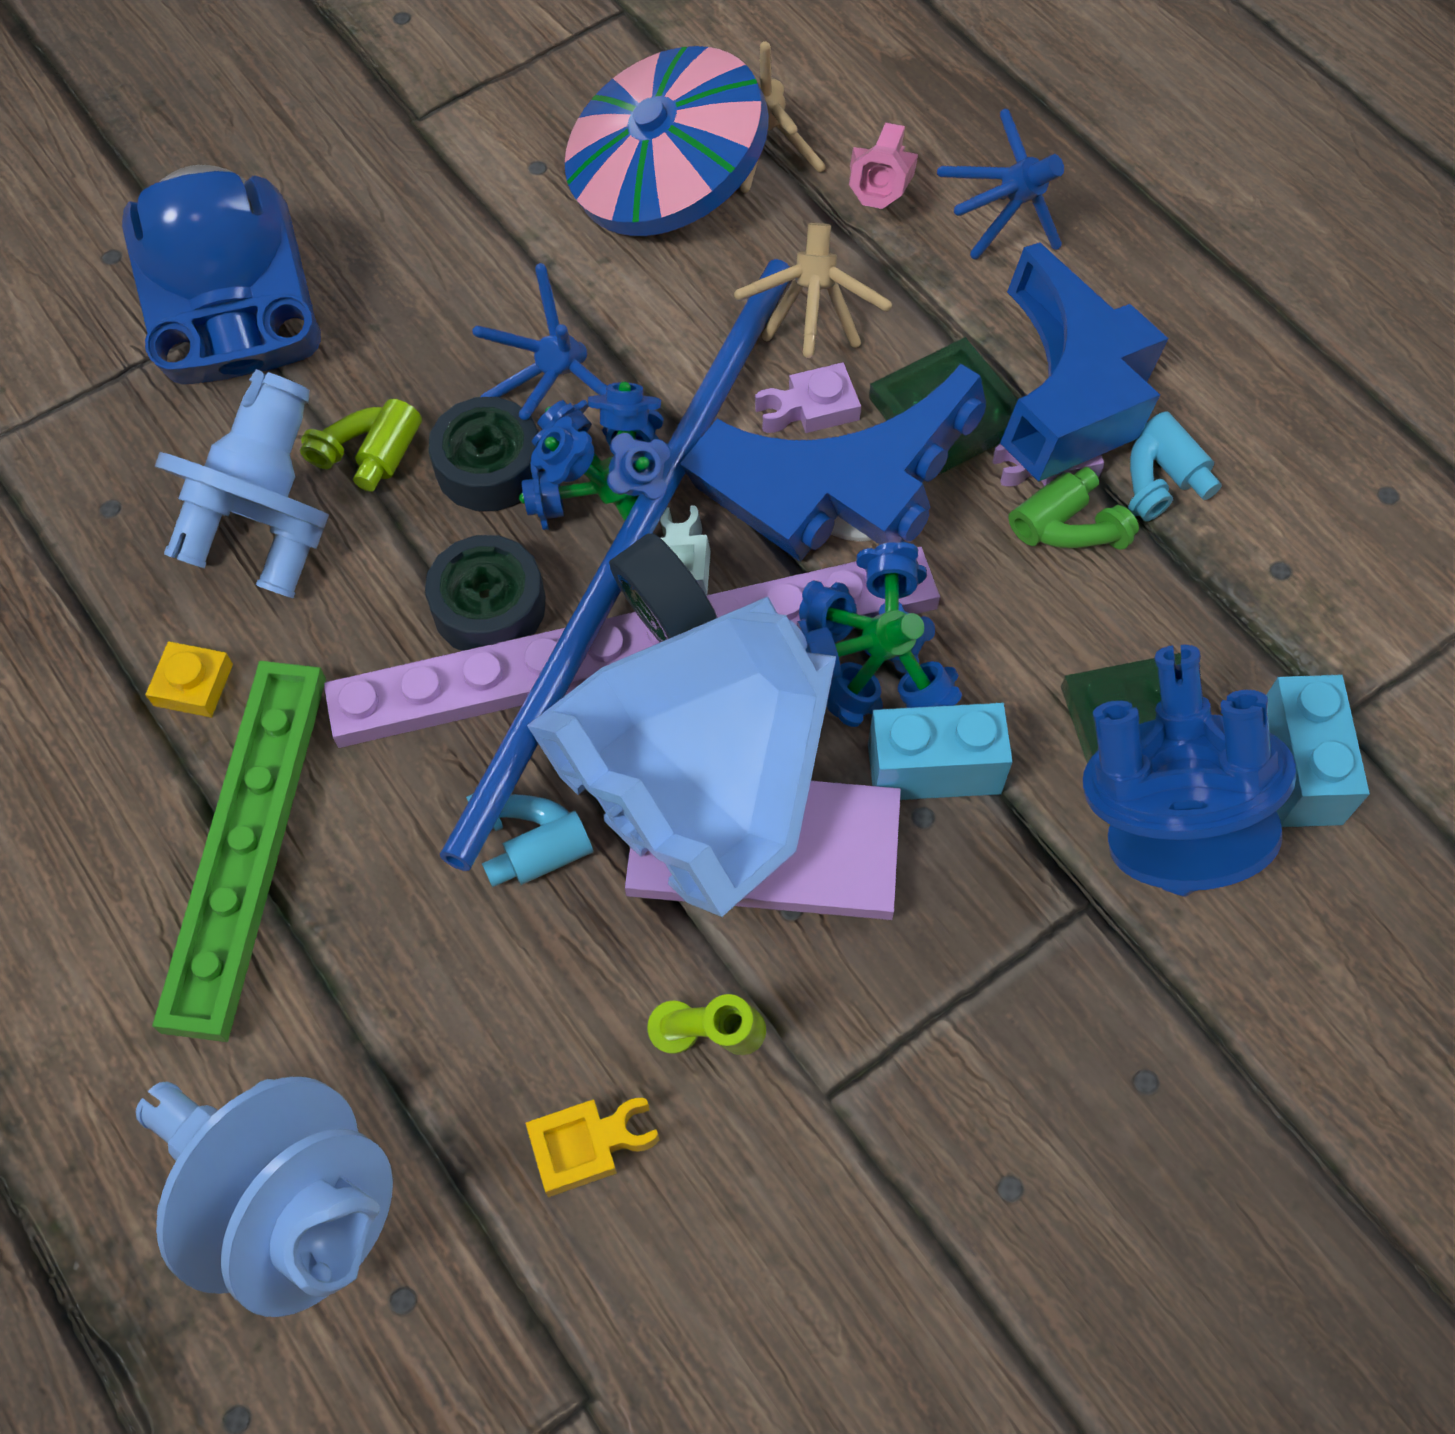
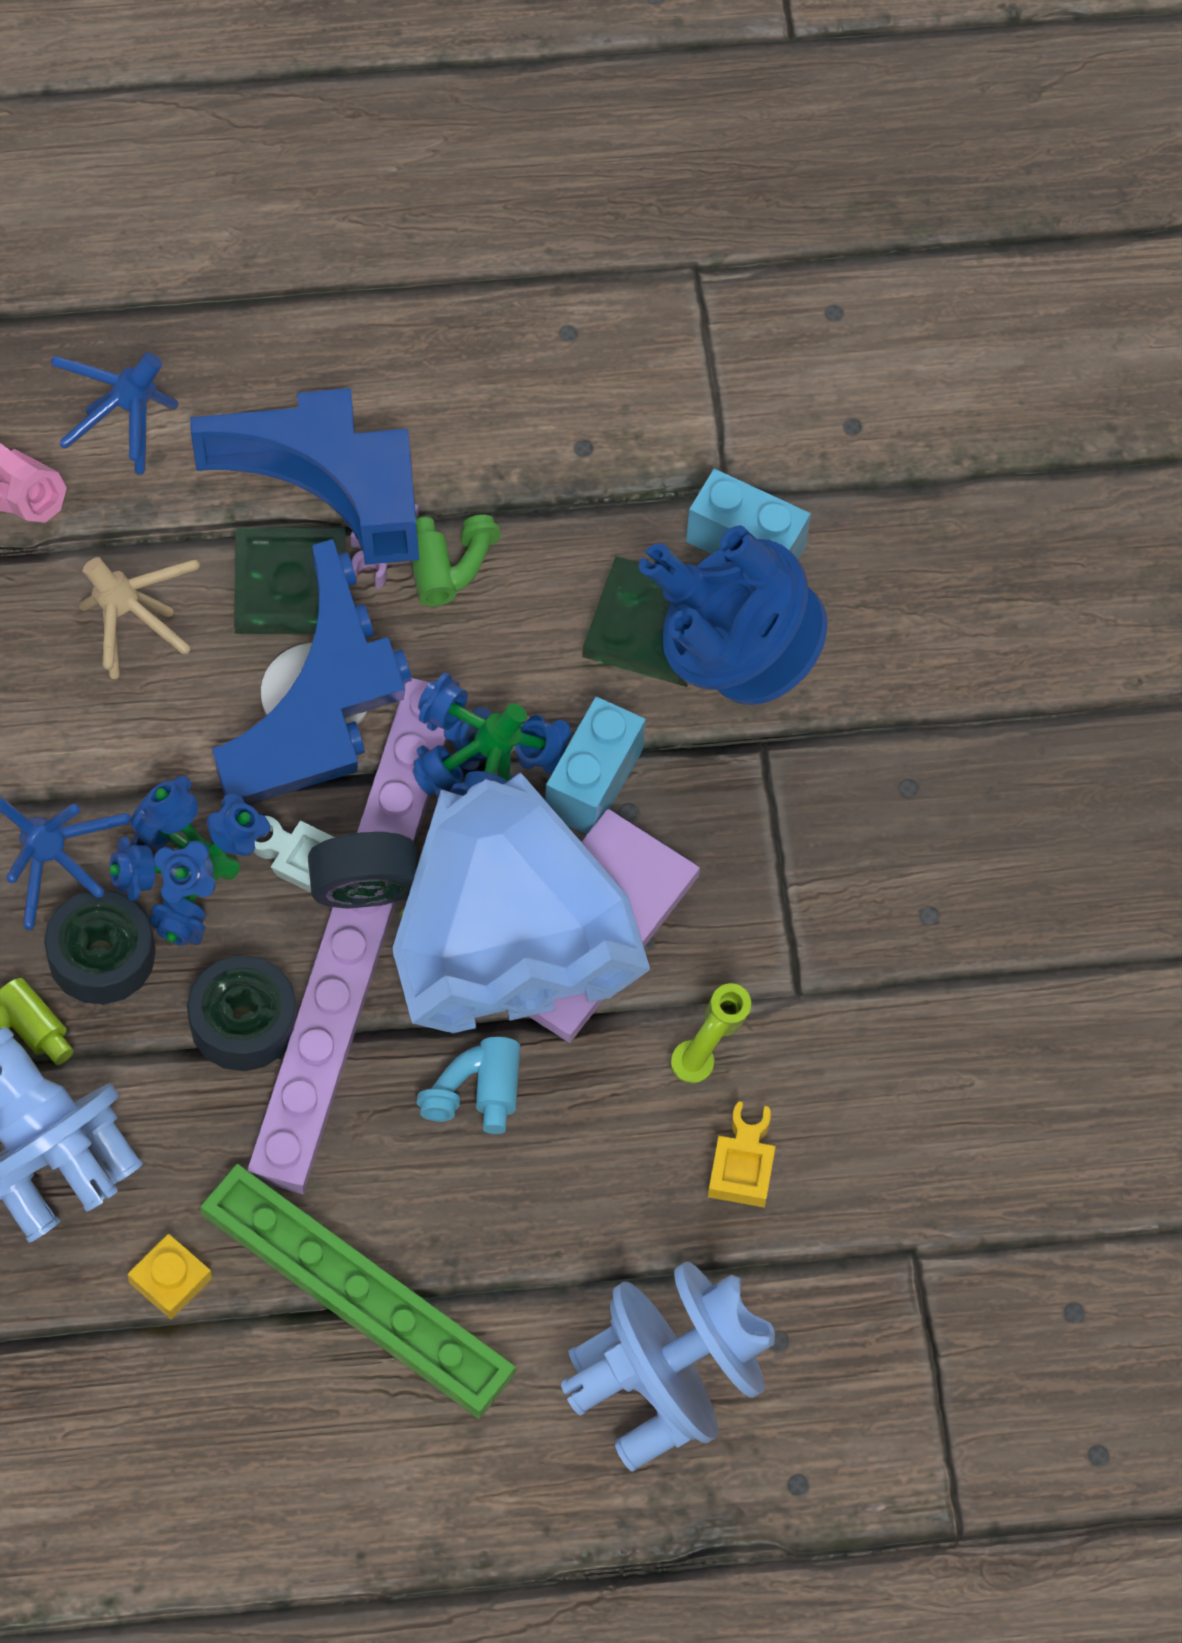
camera: 65 degrees left, 0 degrees up
(589, 616) = (280, 886): blue piece -> none
(815, 397) = (208, 673): lavender plate -> none
(1181, 459) = (450, 450): medium azure plant -> none

